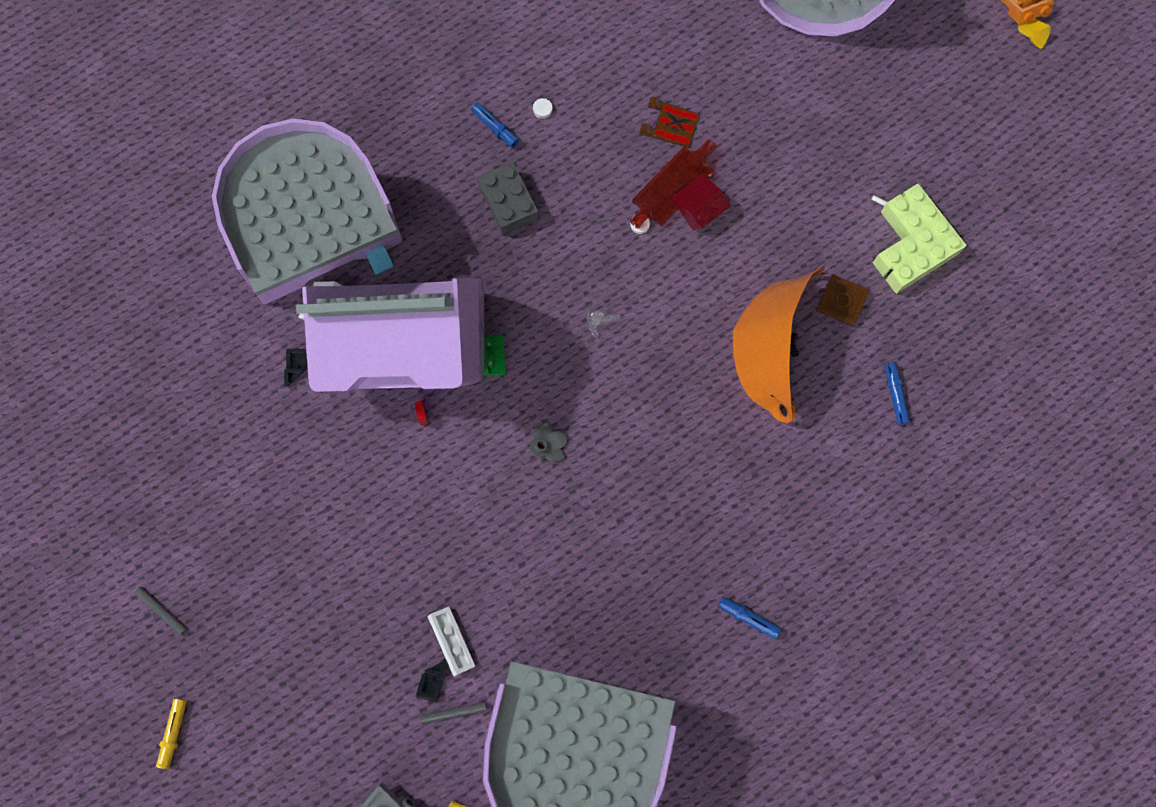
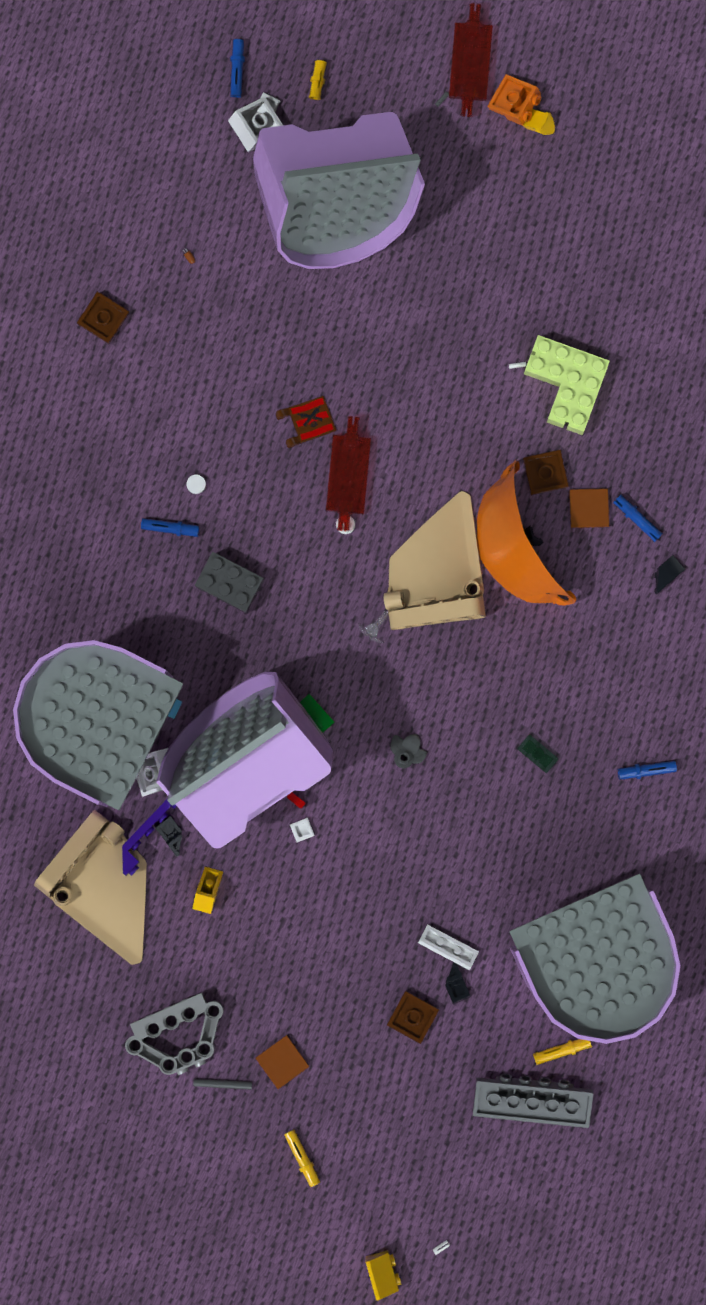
camera: 30 degrees left, 10 degrees up
(183, 556) = (155, 1056): none -> light grey brick
(206, 360) = (97, 890): none -> tan panel
(226, 631) = (282, 1062): none -> dark orange tile
(240, 359) = (129, 861): none -> dark purple slope
(285, 432) = (207, 890): none -> yellow slope
(370, 680) = (412, 1017): none -> reddish brown plate
(406, 443) = (302, 830): none -> white tile
(452, 713) = (488, 994): dark grey bar -> none
(660, 530) = (537, 753): none -> clear green plate
(689, 313) = (436, 570): none -> tan panel
(700, 202) = (381, 475): dark red slope -> none
(859, 356) = (589, 508): none -> dark orange tile
(890, 459) = (667, 572): none -> black slope

